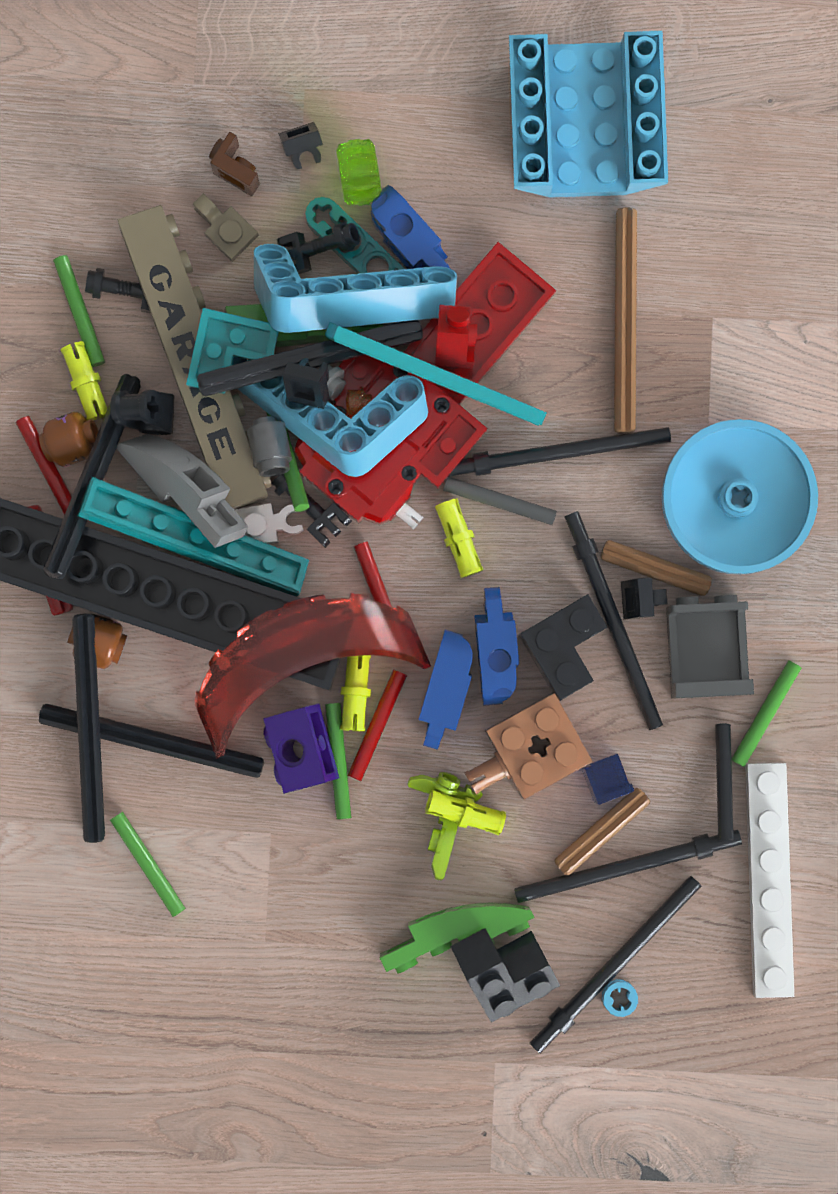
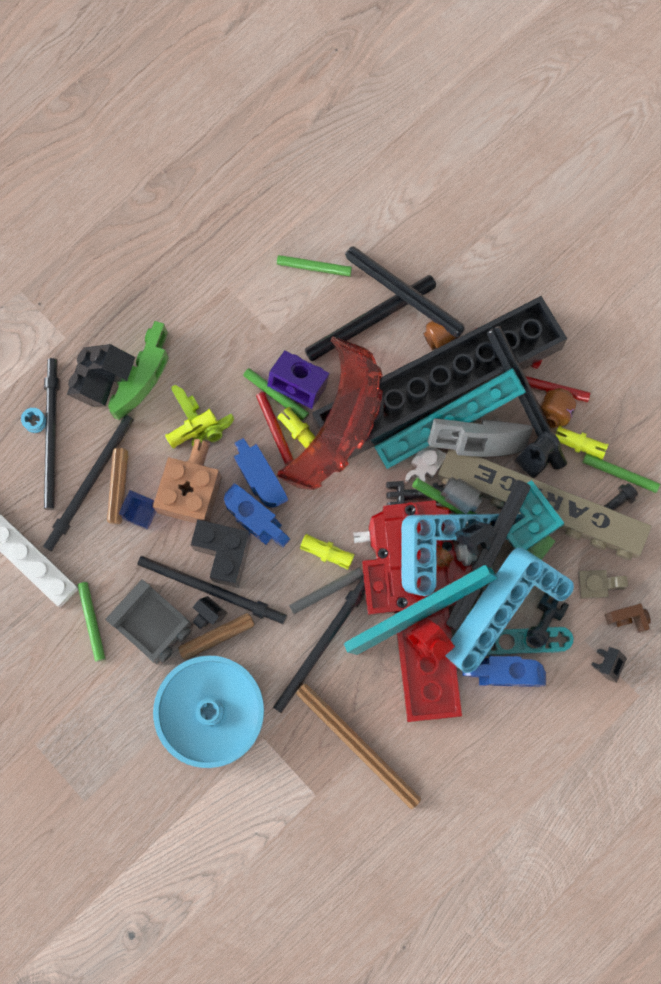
camera: 140 degrees right, 10 degrees down
(359, 171) = (567, 676): clear neon green gear -> none
(371, 573) = (347, 491): red bar -> none
(588, 115) = (488, 831): medium azure slope -> none
(724, 782) = (79, 566): black bar -> none

